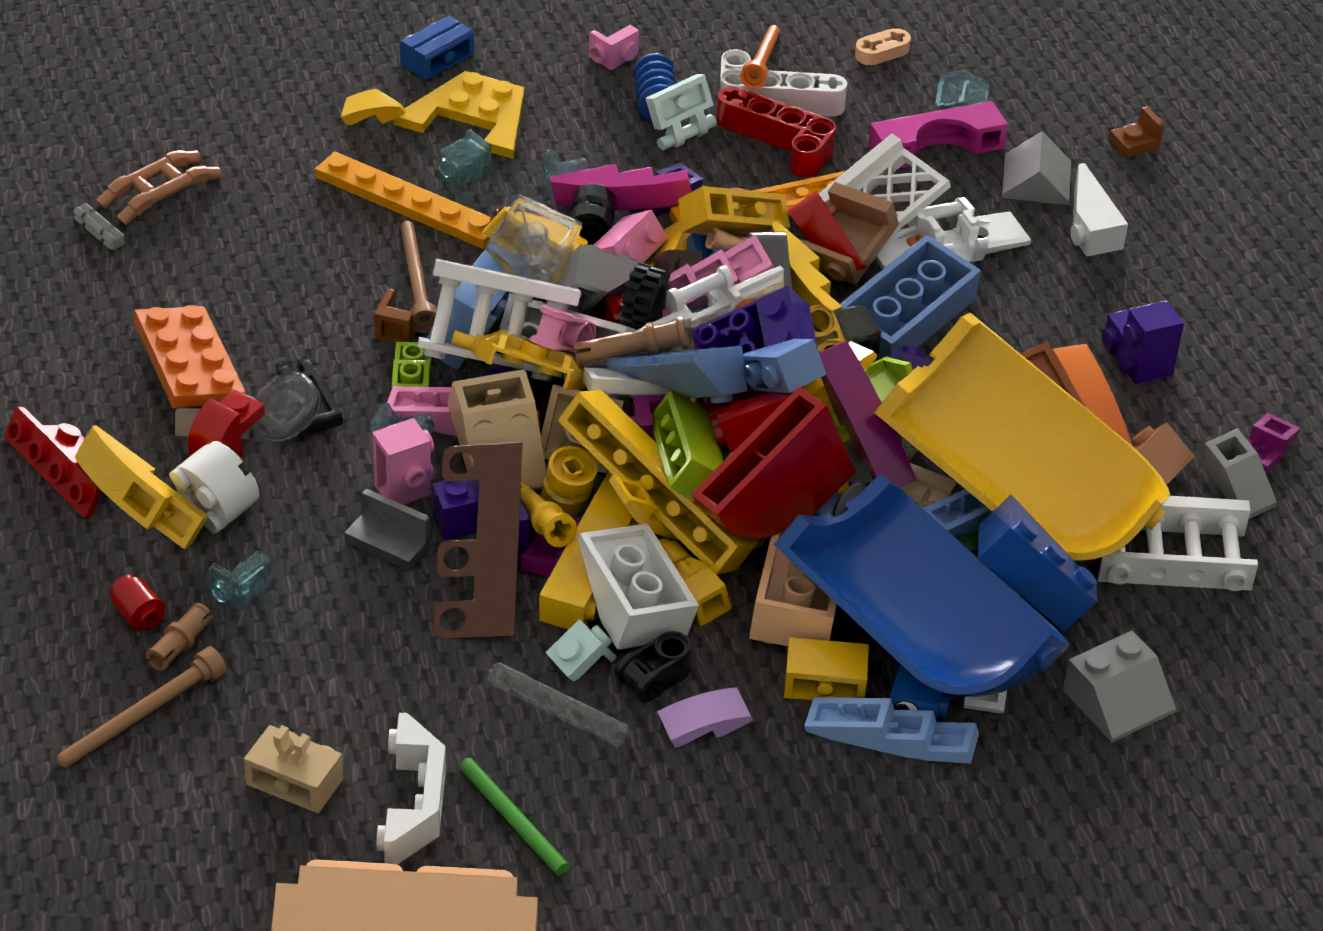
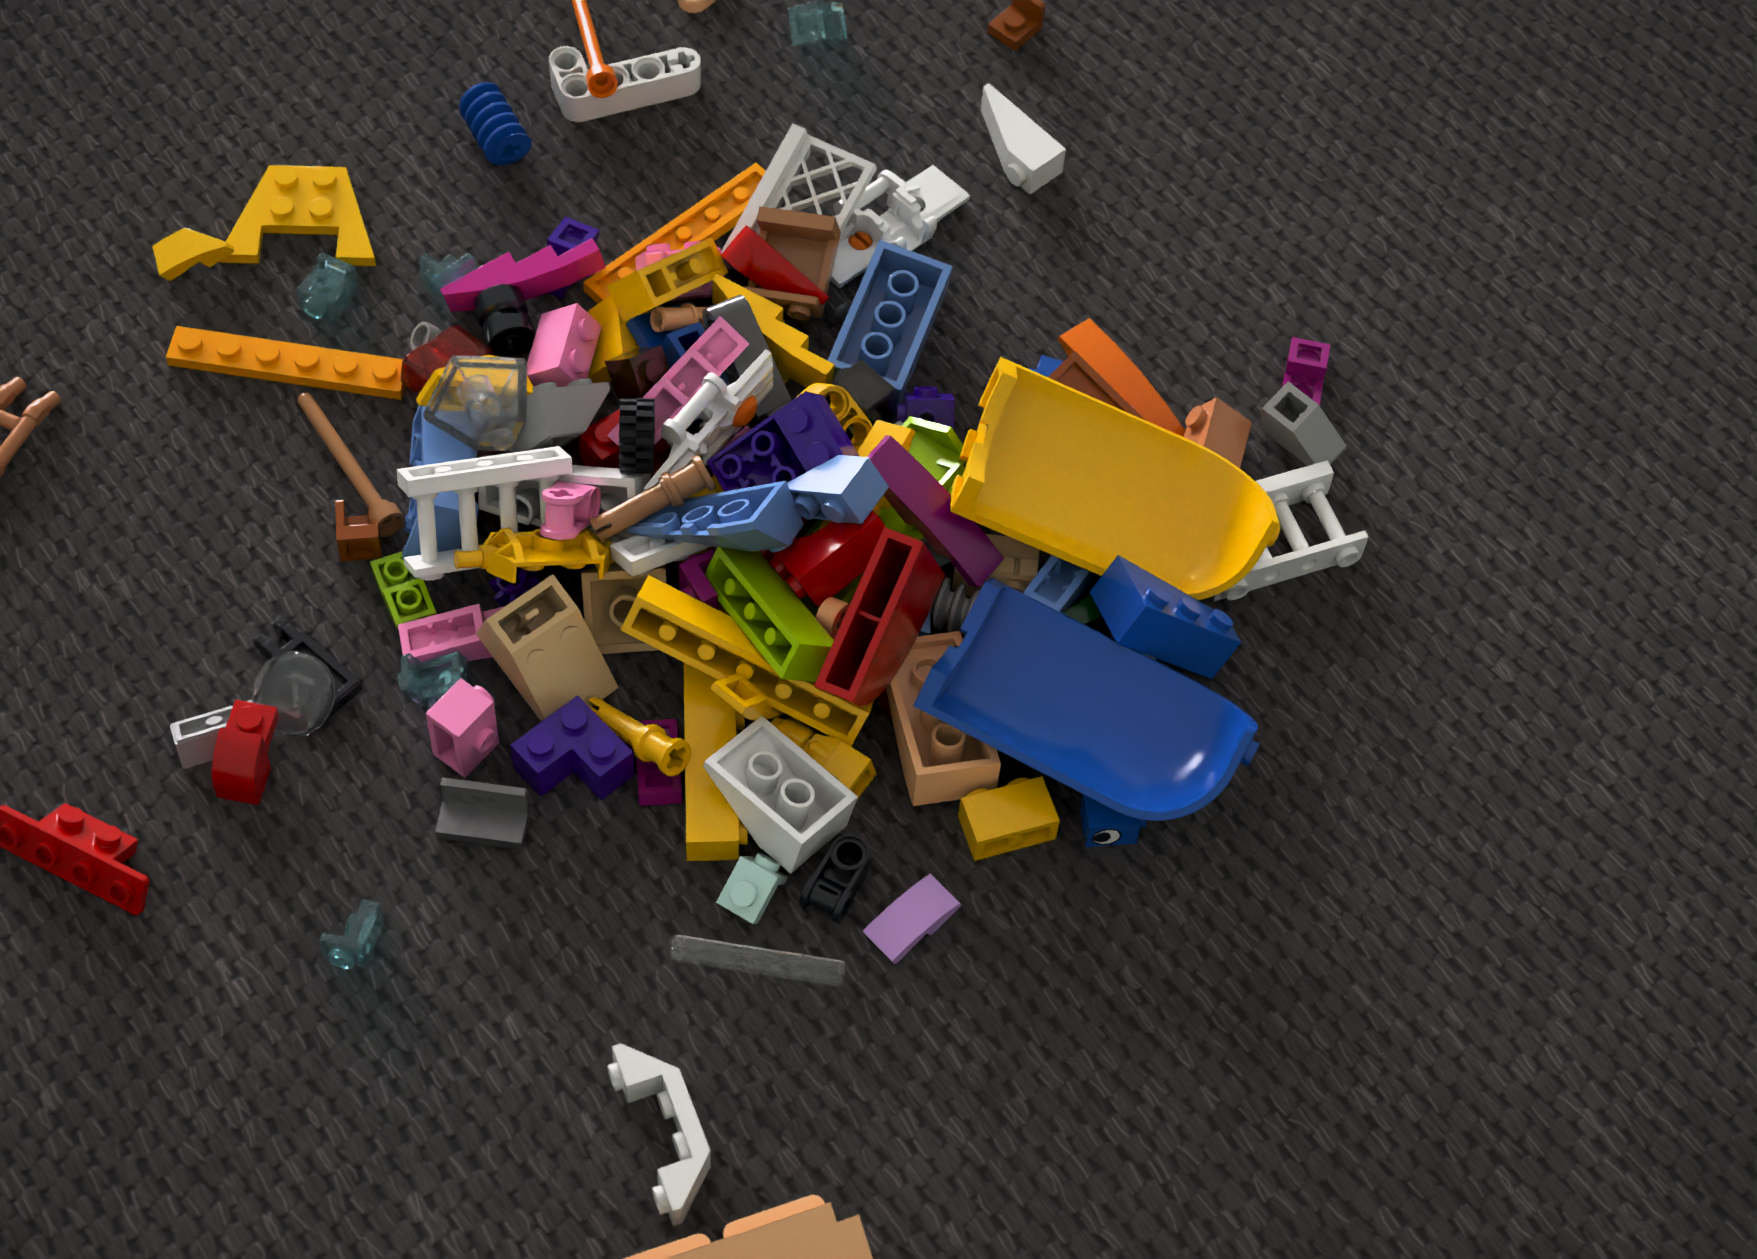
camera: 25 degrees left, 15 degrees up
(136, 490) = (190, 872): yellow slope -> none
(137, 602) = (257, 1008): red brick -> none
(179, 636) = (323, 1033): medium nougat pin -> none
(187, 355) = (151, 664): orange plate -> none
(206, 666) = (370, 1060): medium nougat piece -> none
(216, 484) = (272, 832): white brick -> none
(293, 768) = (529, 1151): tan brick -> none
(436, 48) = (223, 144): blue brick -> none
(495, 549) = (612, 800): reddish brown piece -> none
(514, 816) = (776, 1114): bright green bar -> none
(569, 479) = (646, 683): yellow wheel -> none
(615, 49) = (423, 84): bright pink bracket -> none
(677, 103) = (535, 142): light aqua plate -> none
(776, 123) = (650, 131): red beam -> none
(879, 727) = (1099, 863): light blue slope -> none
(973, 127) = (849, 67): dark pink arch -> none
(1037, 172) = (936, 104): light grey slope -> none
(1119, 686) = (1298, 728): light grey slope -> none
(1145, 340) = (1141, 293): dark purple brick -> none

